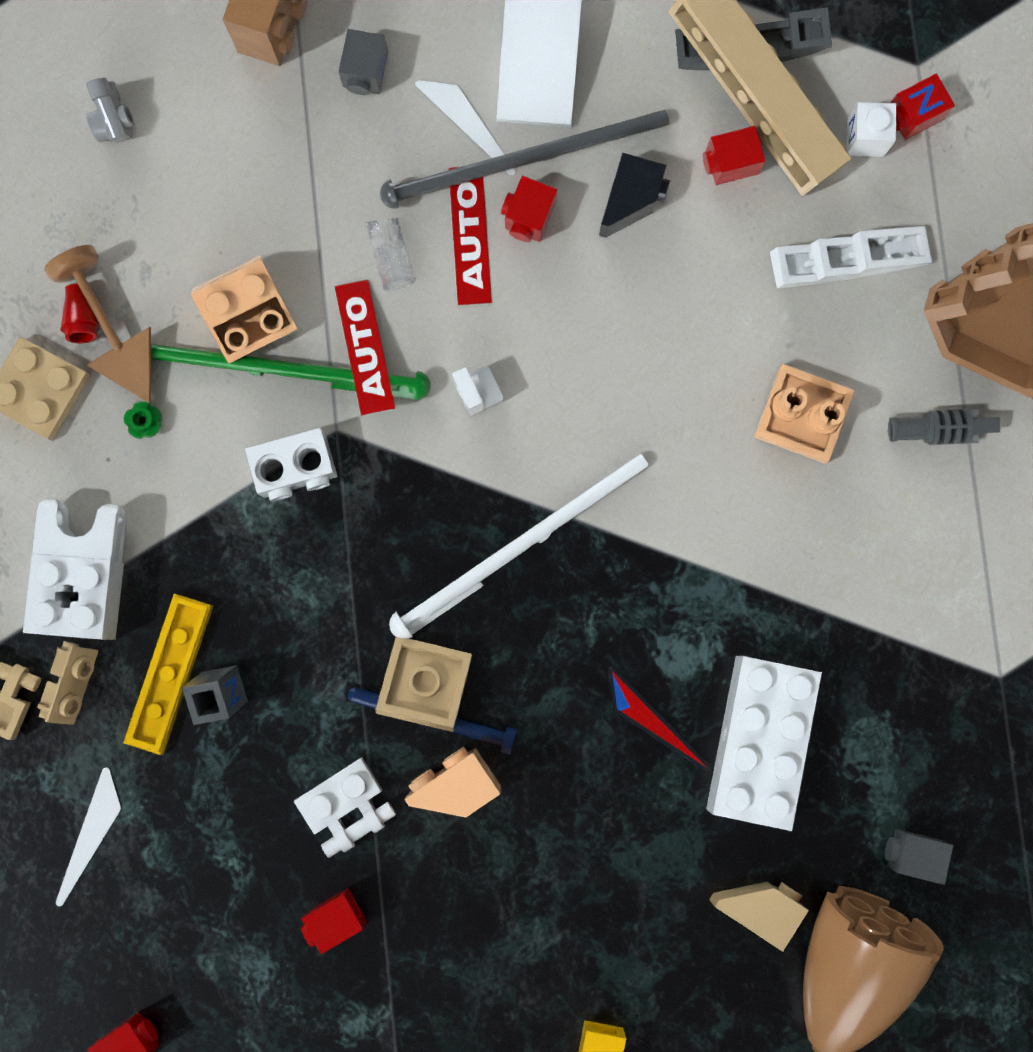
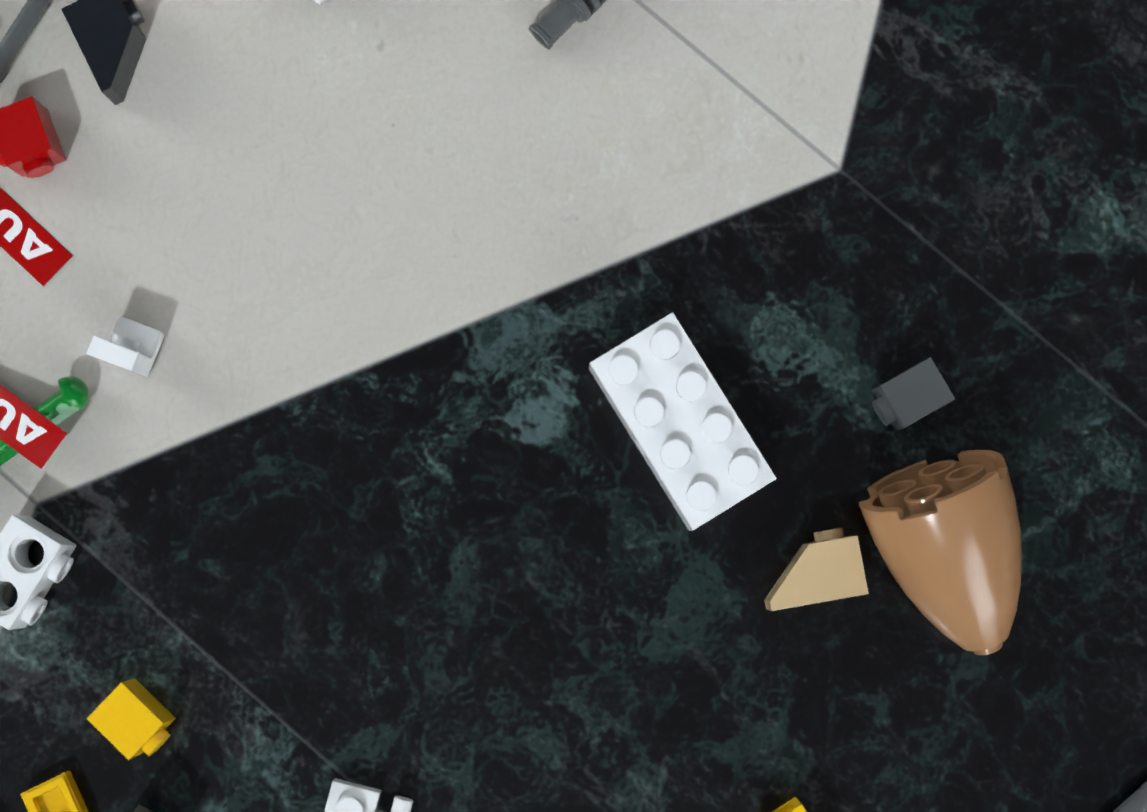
camera: 40 degrees left, 0 degrees up
(278, 613) = (132, 720): none -> yellow brick
(424, 683) = (326, 658): tan plate -> none
(456, 789) = (441, 724): light nougat slope -> none
(462, 727) = (447, 640): dark blue bar -> none
(471, 581) = (286, 527): white bar -> none
(635, 709) = (547, 500): sticker -> none
(804, 413) = (448, 95): light nougat plate -> none

